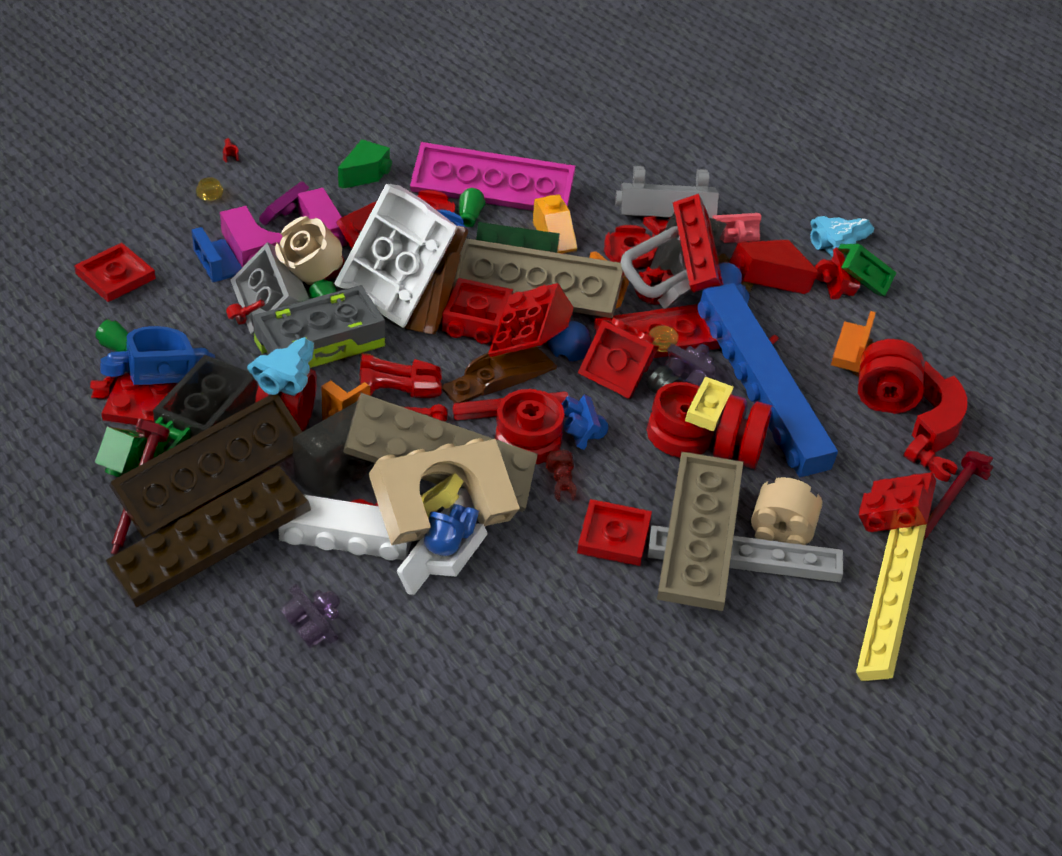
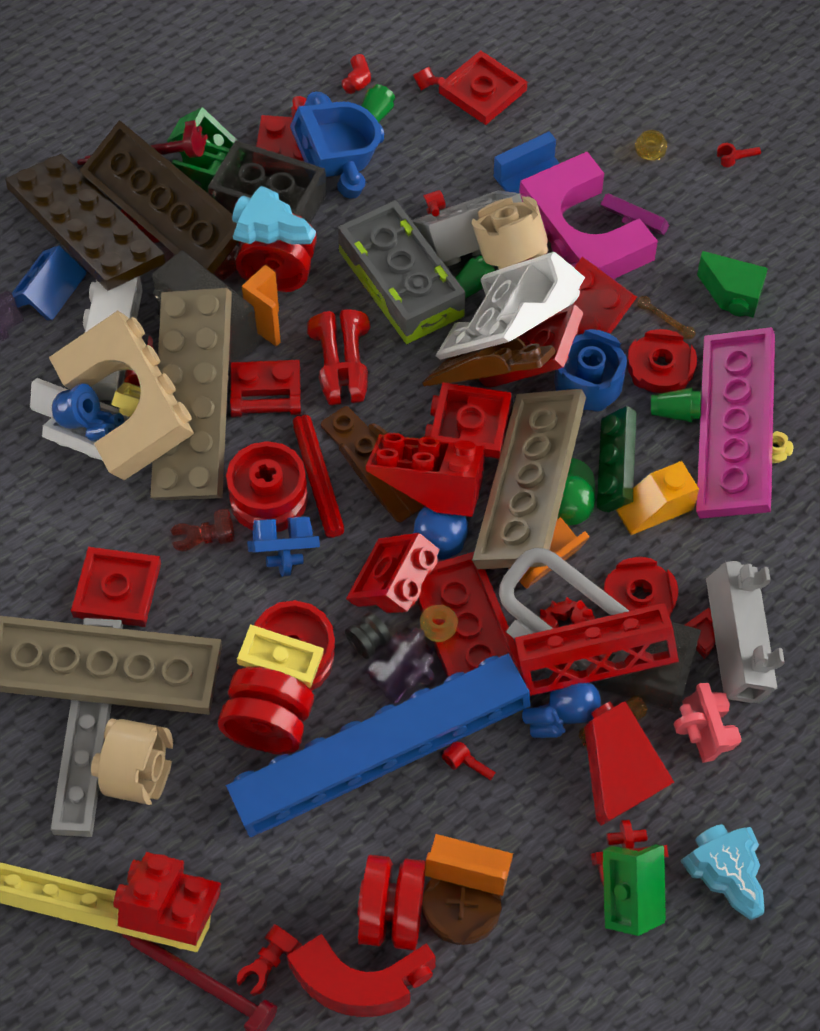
camera: 90 degrees right, 15 degrees up
(69, 346) = (359, 77): none -> red arm
(92, 307) = (426, 78): none -> red hand
(266, 575) = (49, 282): none -> blue panel

